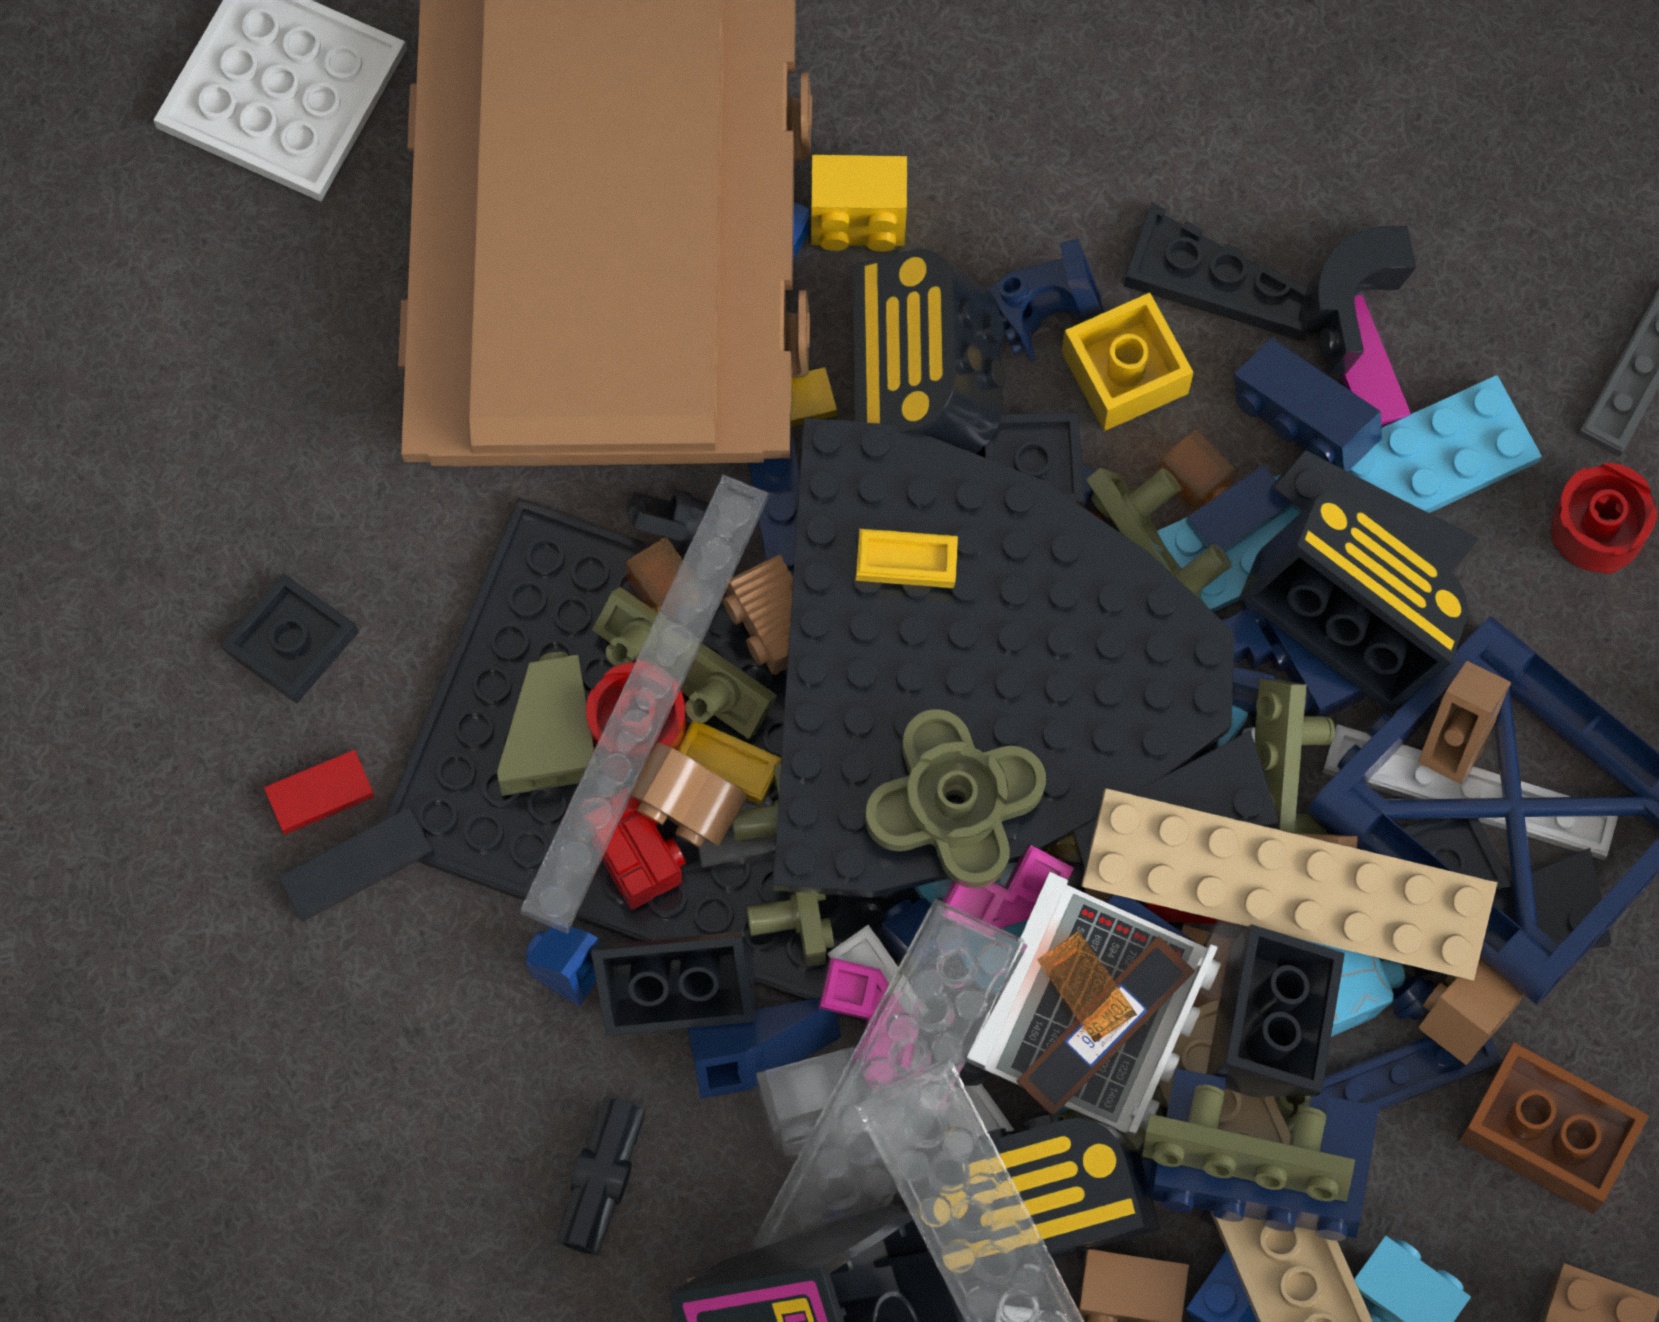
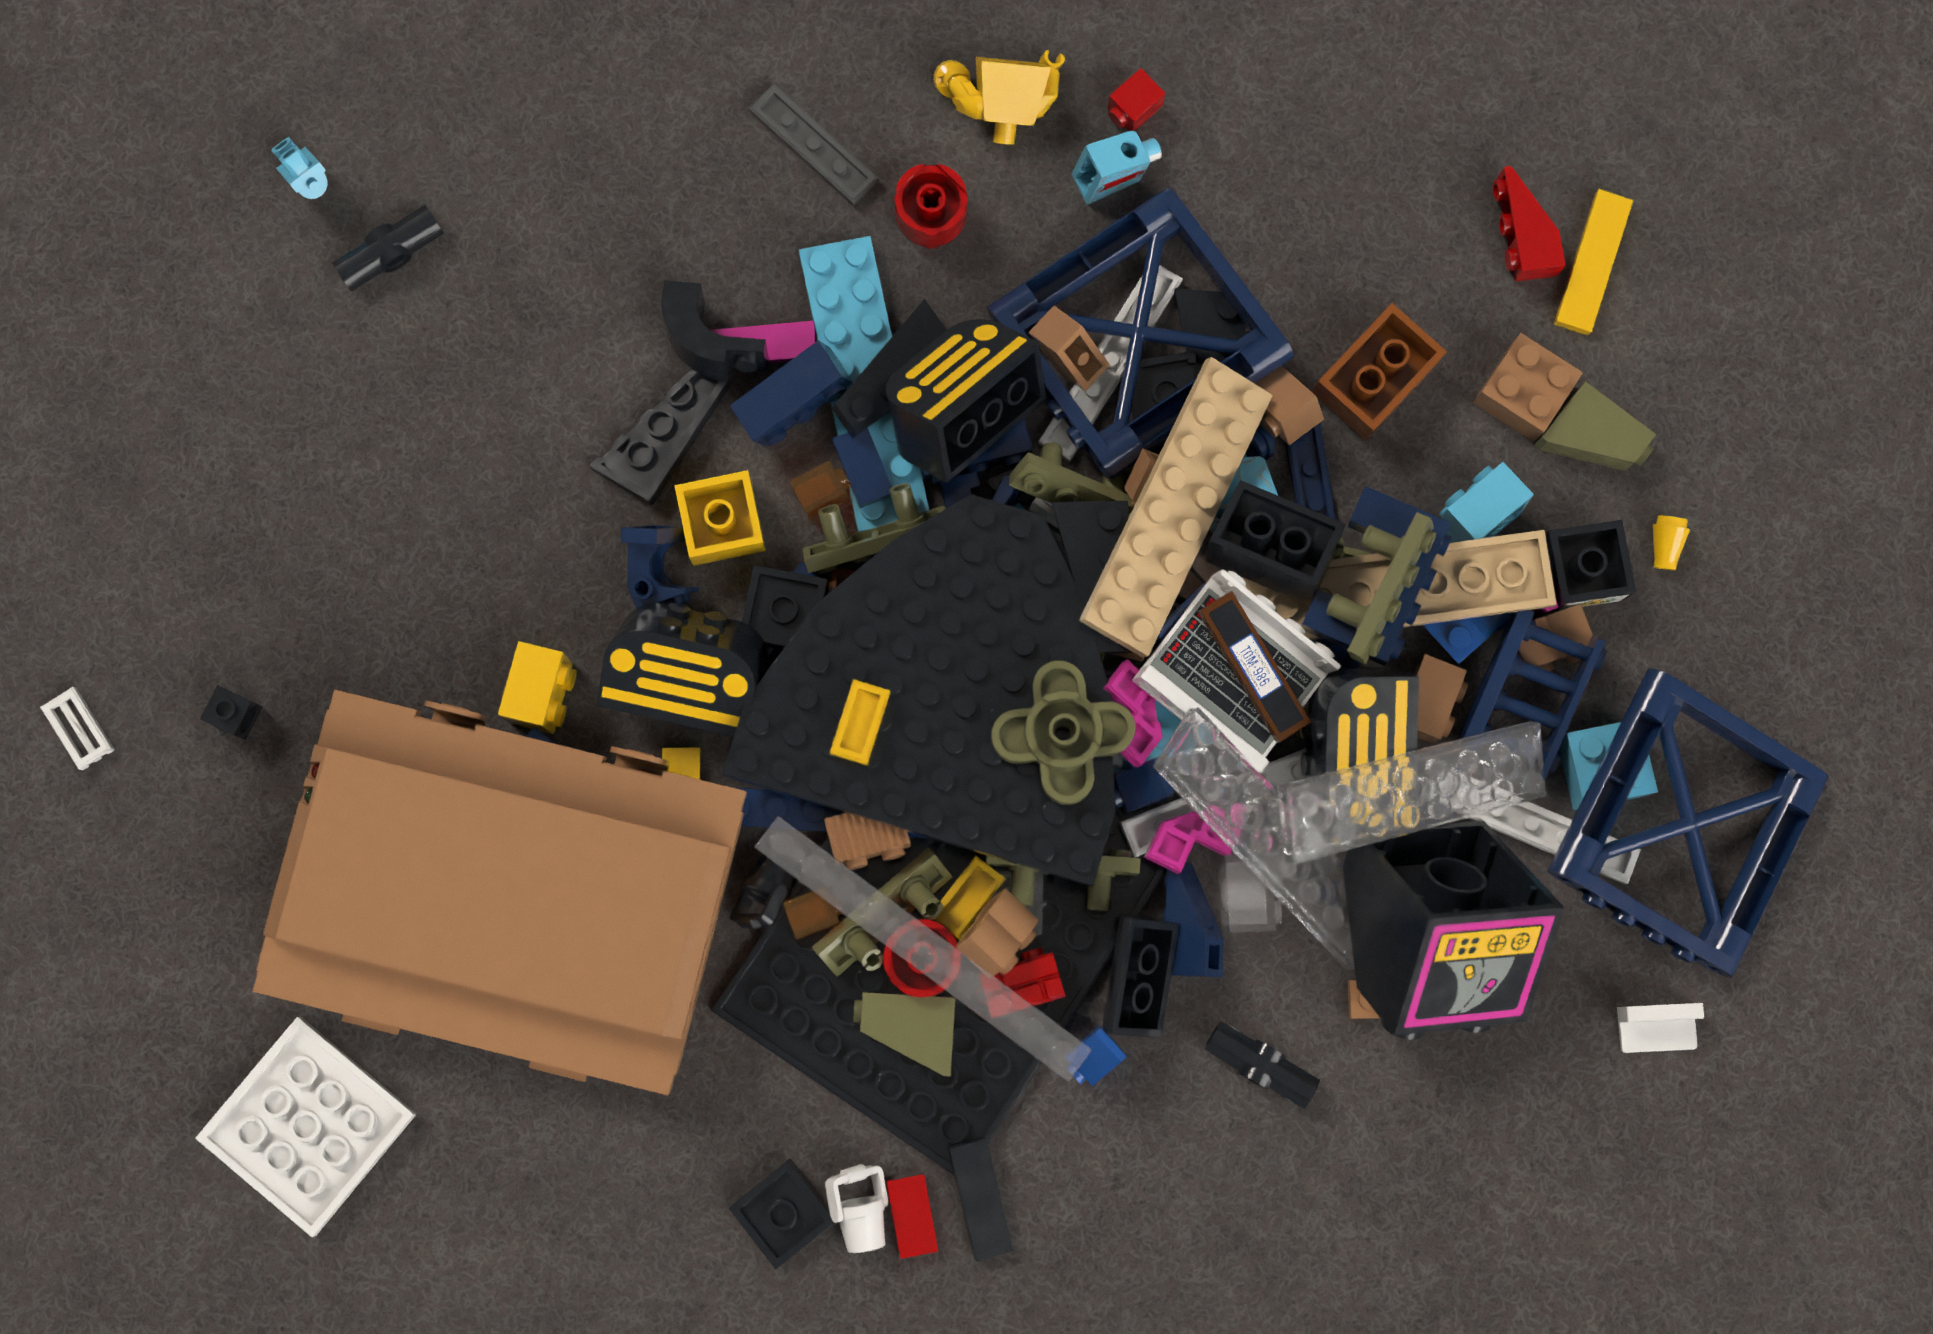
camera: 80 degrees left, 10 degrees up
(302, 729) = (860, 1217): none -> white piece
(1086, 987) = (1227, 672): clear orange tile -> none

